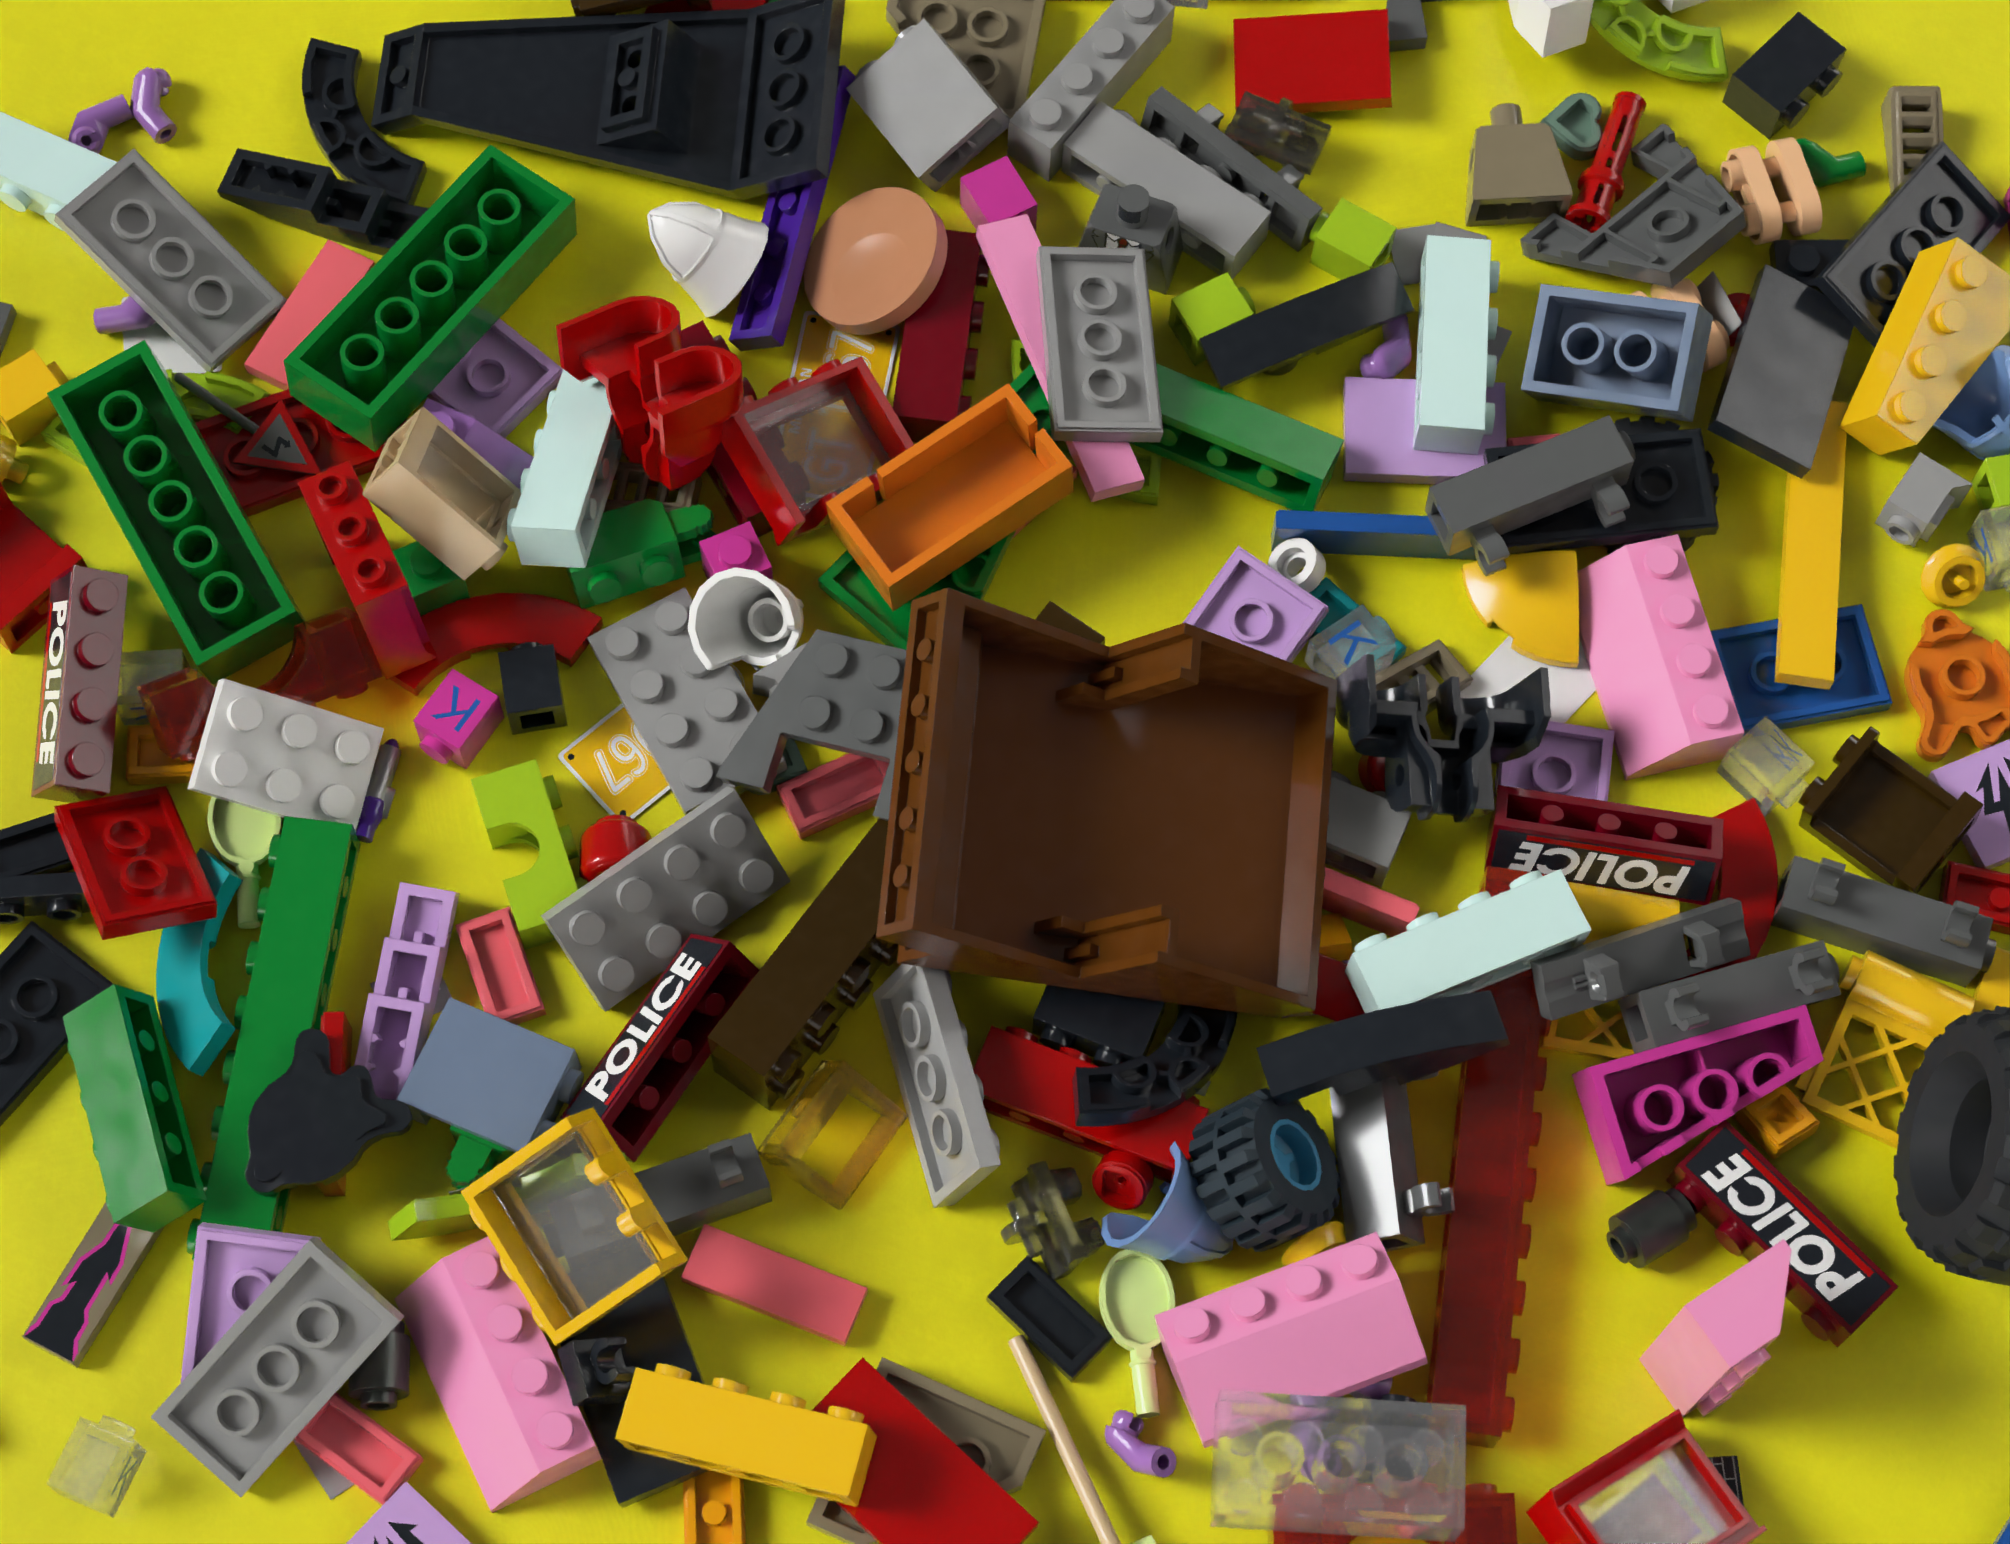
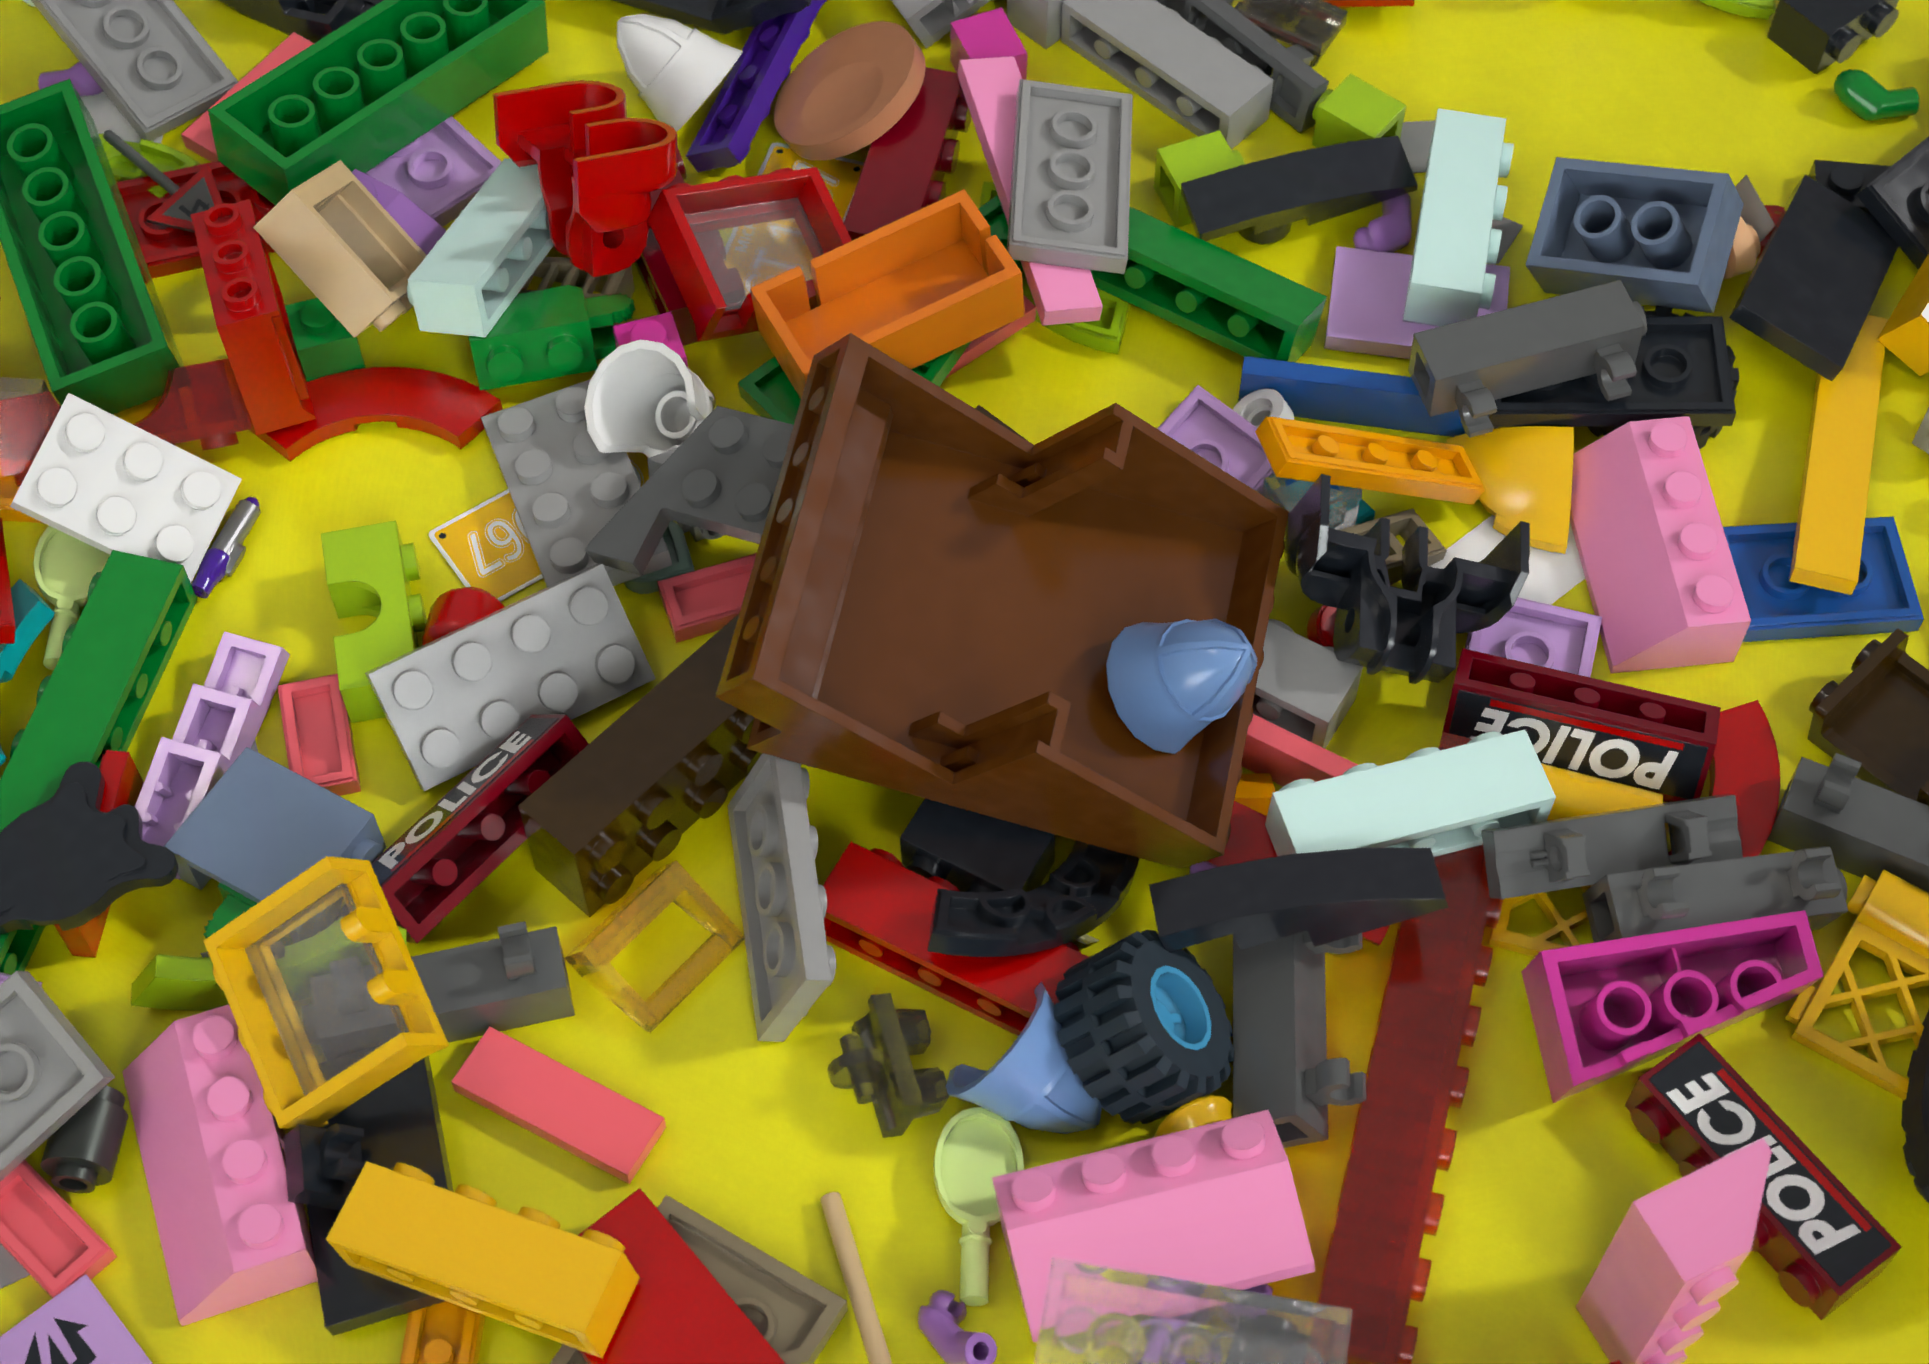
camera: 10 degrees right, 10 degrees down
(458, 720) = (325, 481): dark pink brick -> none
(532, 688) = (411, 459): black brick -> none
(1049, 1318) = (873, 1178): black tile -> none
(1122, 1180) = (979, 1030): red tile -> none
(1136, 220) = (1124, 65): dark grey torso -> none
(1258, 853) = (1177, 678): none -> medium blue helmet
(1400, 611) = (1369, 460): none -> light orange tile
(1515, 172) = (1541, 75): dark tan torso -> none
(1576, 126) = (1607, 43): sand green tile -> none
(1598, 201) = (1658, 40): red pin -> none
(1651, 1227) = (1602, 1151): pearl dark grey brick -> none
(1659, 232) = (1697, 131): dark grey wing -> none
(1767, 767) = (1775, 667): clear brick -> none
(1773, 190) = (1816, 113): light nougat brick -> none
(1778, 1121) = (1763, 1049): light orange tile -> none

